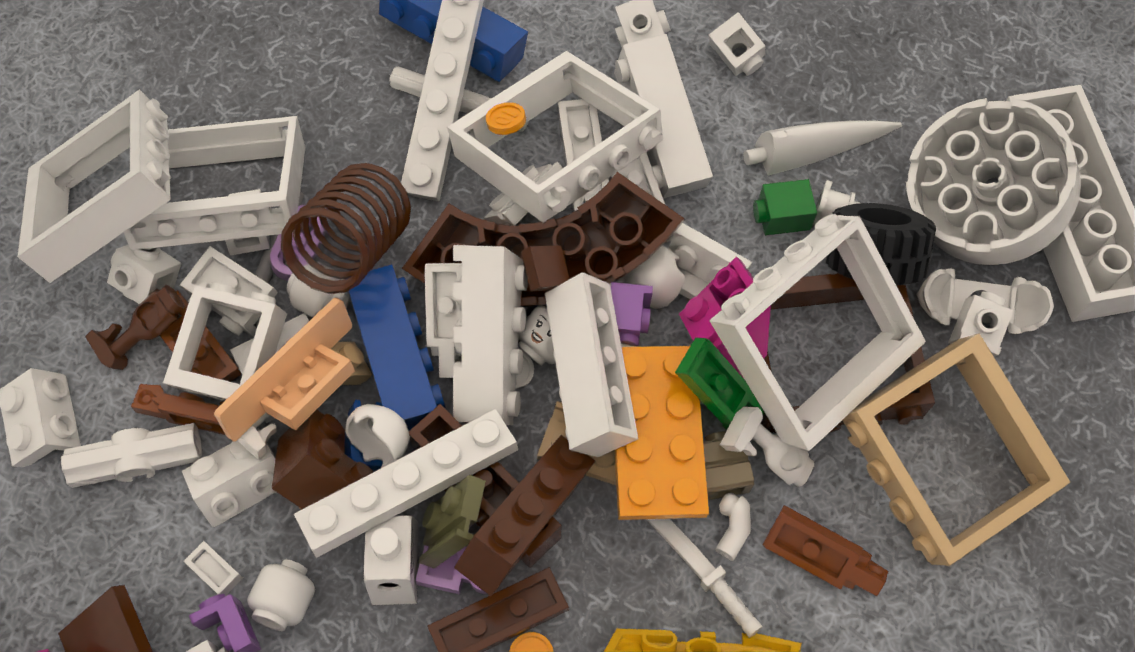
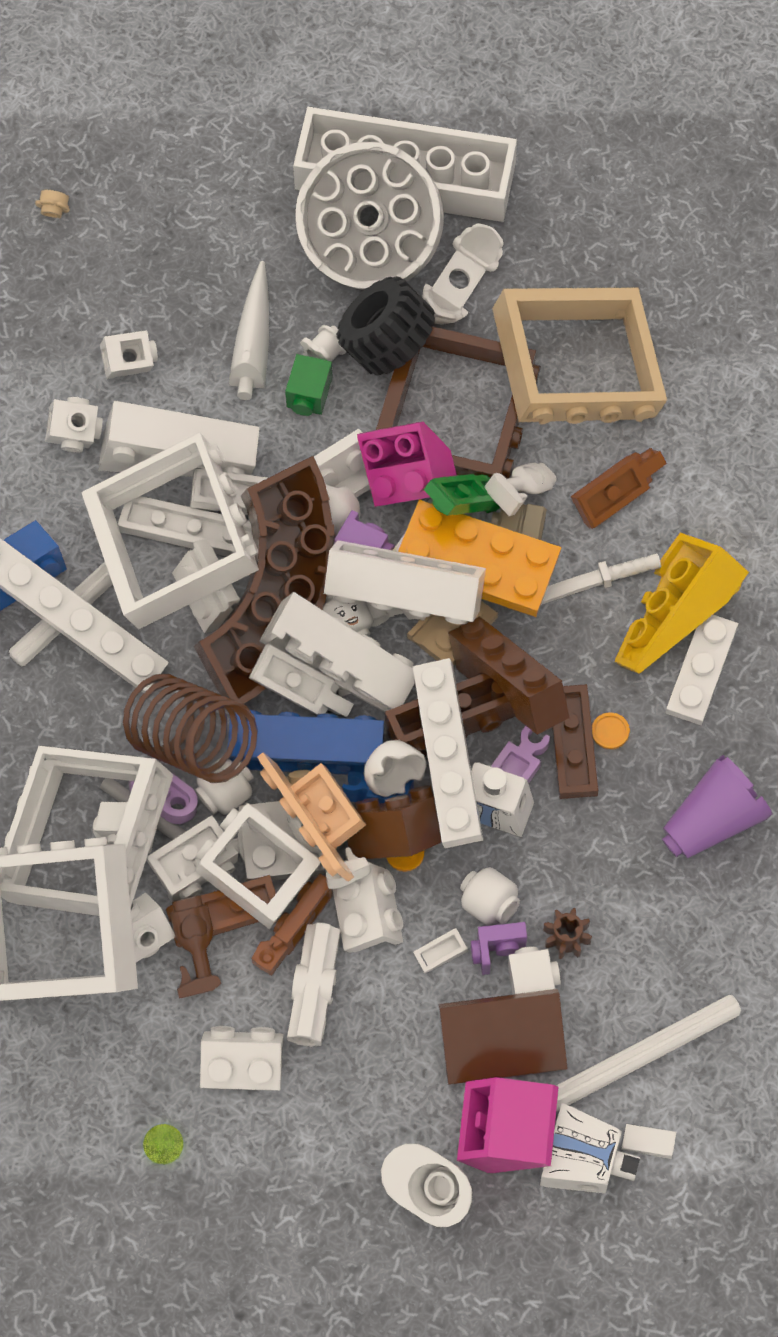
camera: 65 degrees left, 0 degrees up
(450, 519) = (493, 731): olive plate -> none
(505, 118) = (140, 562): light orange piece -> none
(544, 267) = (305, 581): reddish brown tile -> none
(739, 525) = (573, 541): white arm -> none
(863, 372) = (492, 383): white window -> none
(970, 320) = (480, 286): white brick -> none

